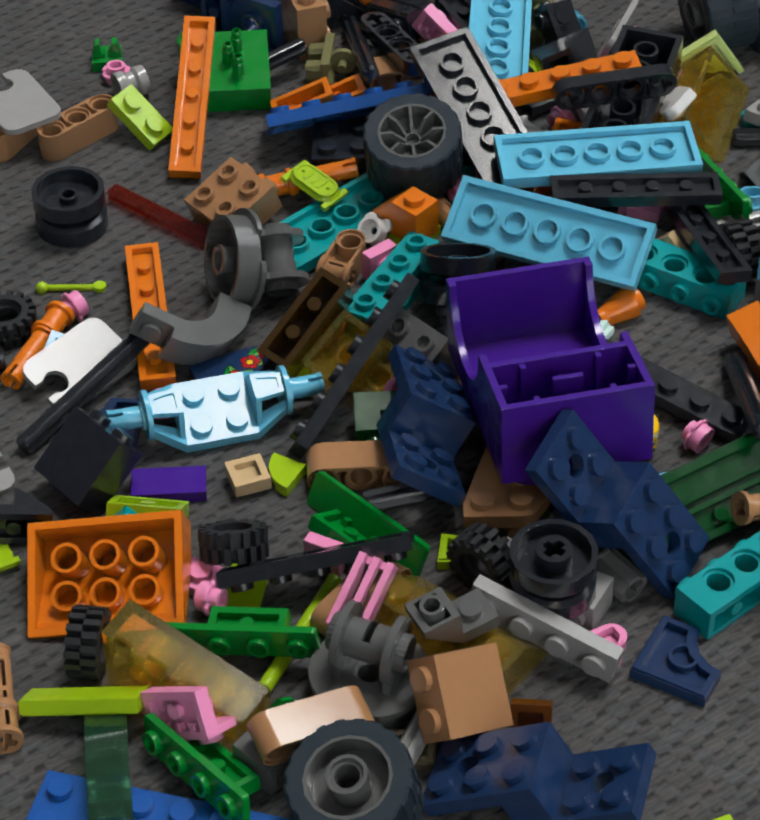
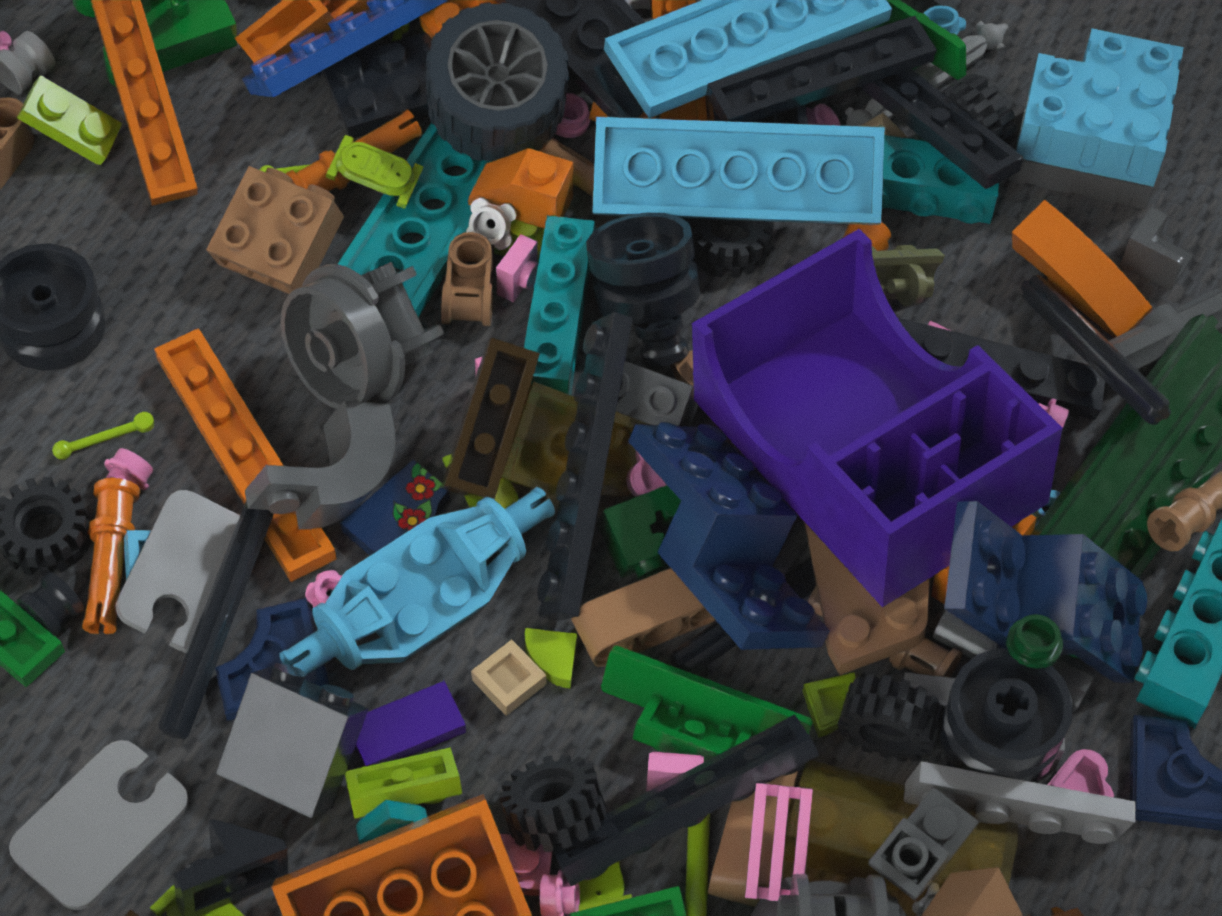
camera: 25 degrees left, 15 degrees up
(158, 215) = (174, 277): clear red axle -> none
(586, 516) = (1035, 641): none -> dark green plate
(643, 324) = (907, 272): none -> olive hips

